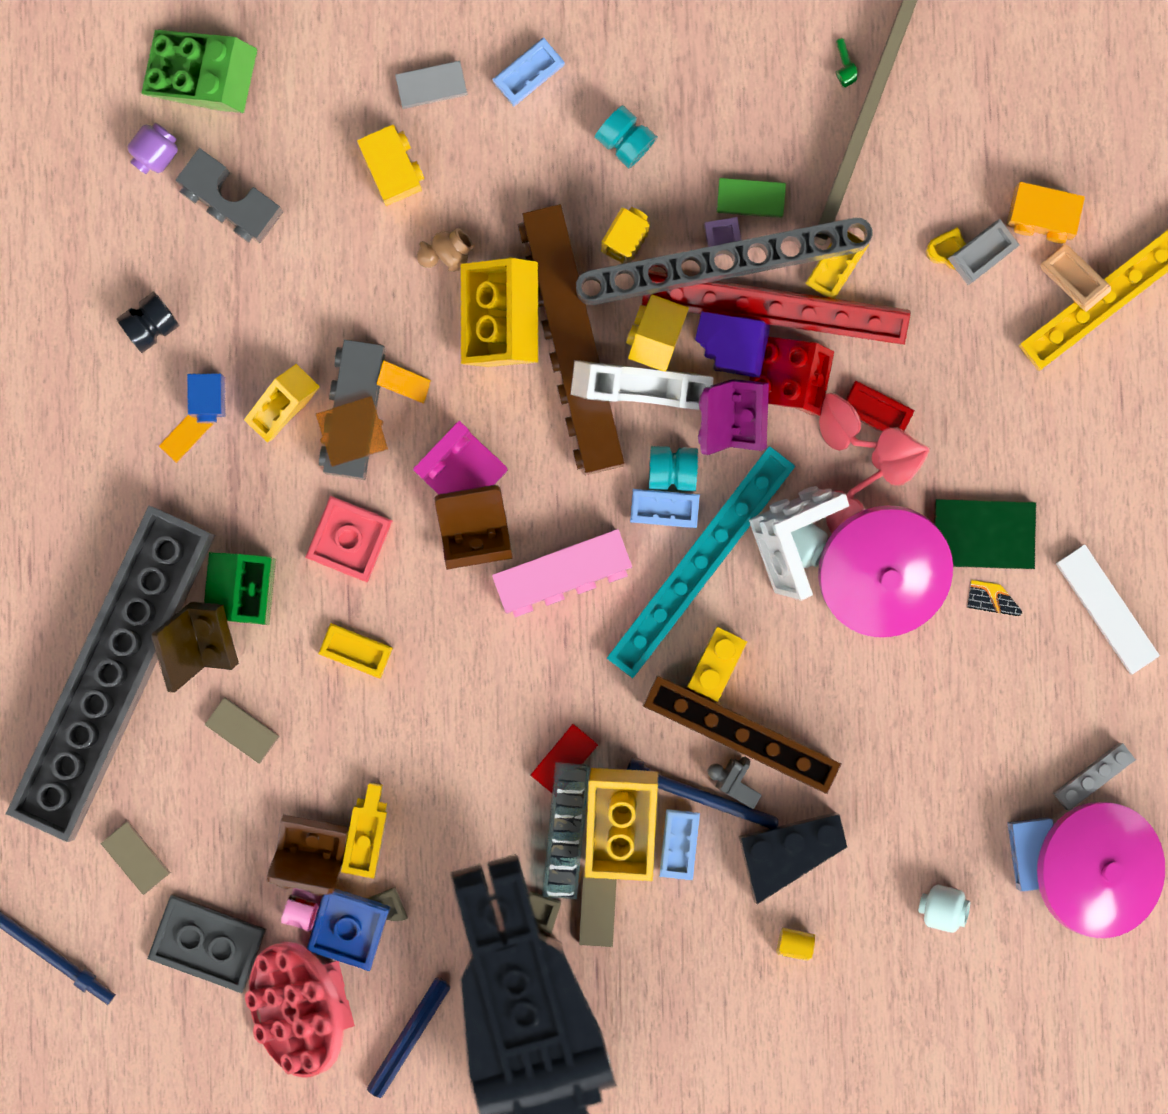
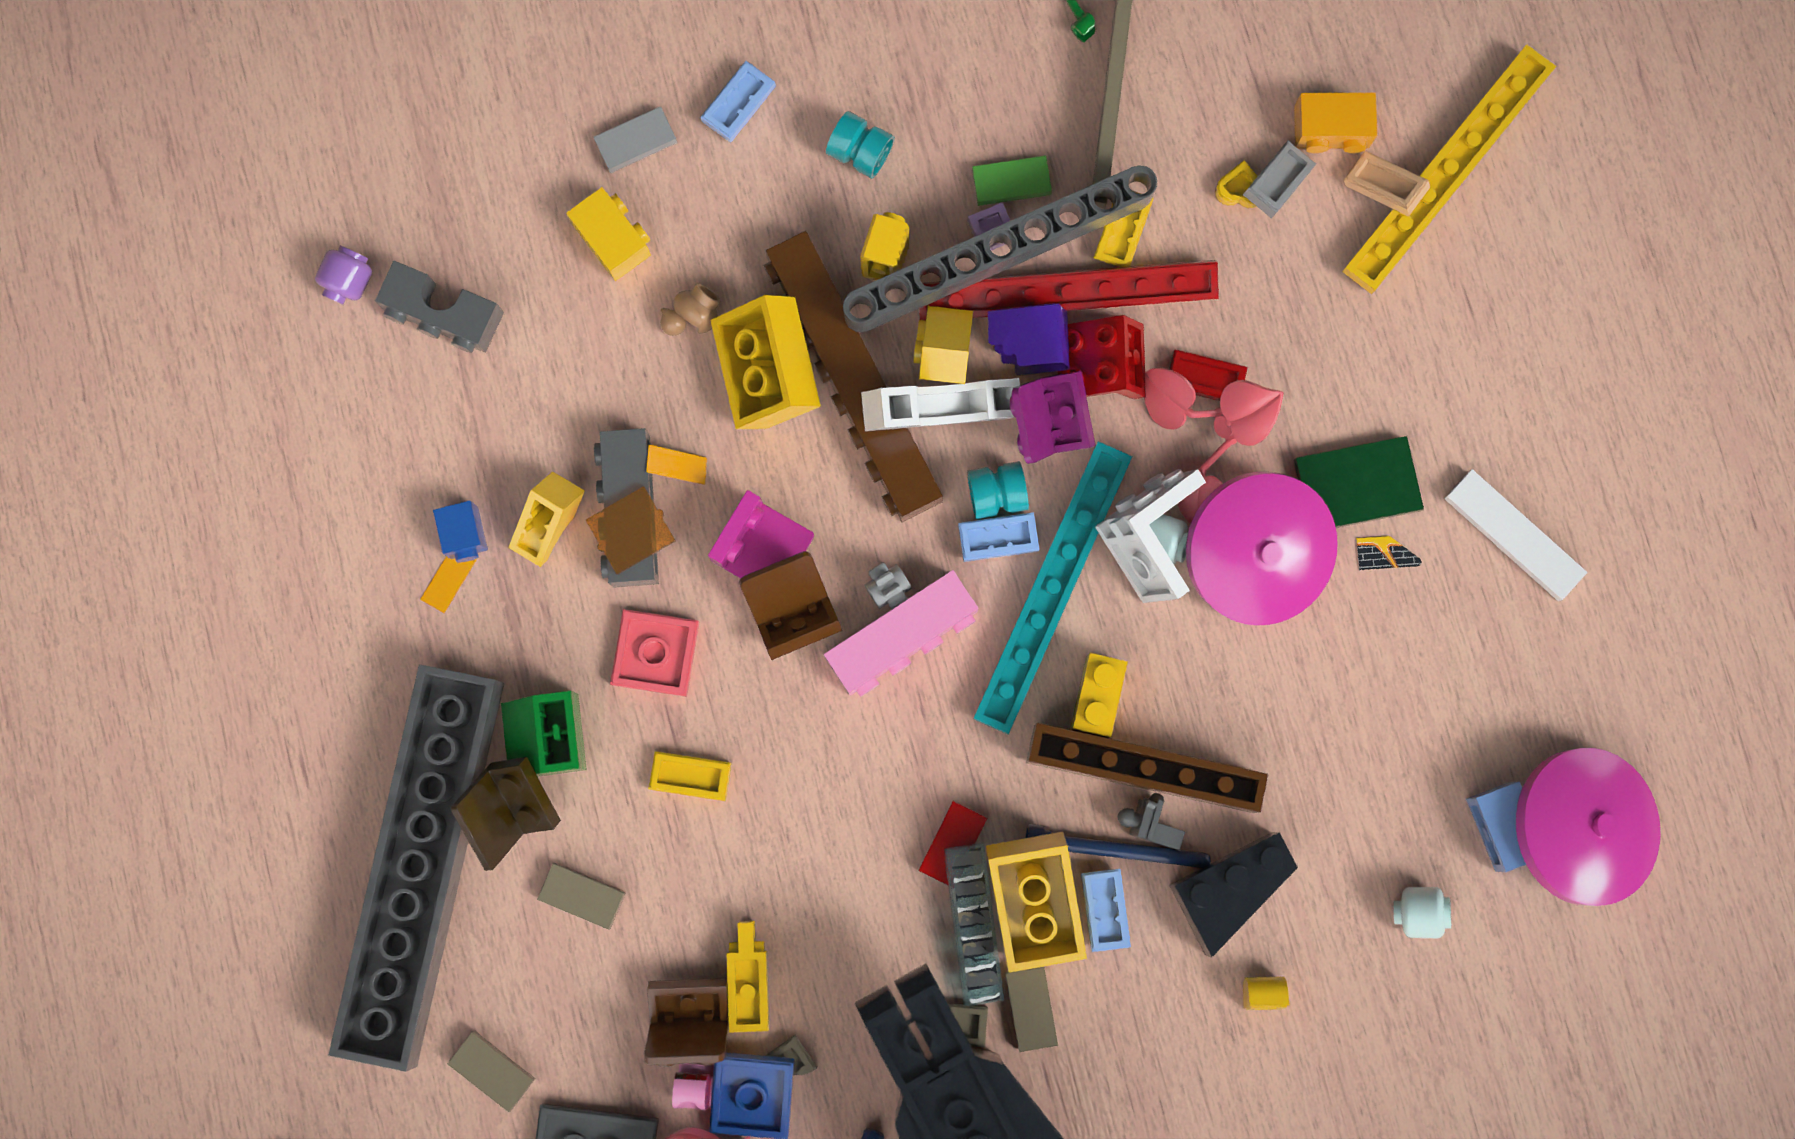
camera: 10 degrees left, 5 degrees down
(147, 322) = (377, 464): black wheel -> none
(200, 70) = (379, 179): bright green slope -> none
(560, 529) = (887, 586): none -> light grey gear
(1094, 776) = (1550, 723): light grey piece -> none

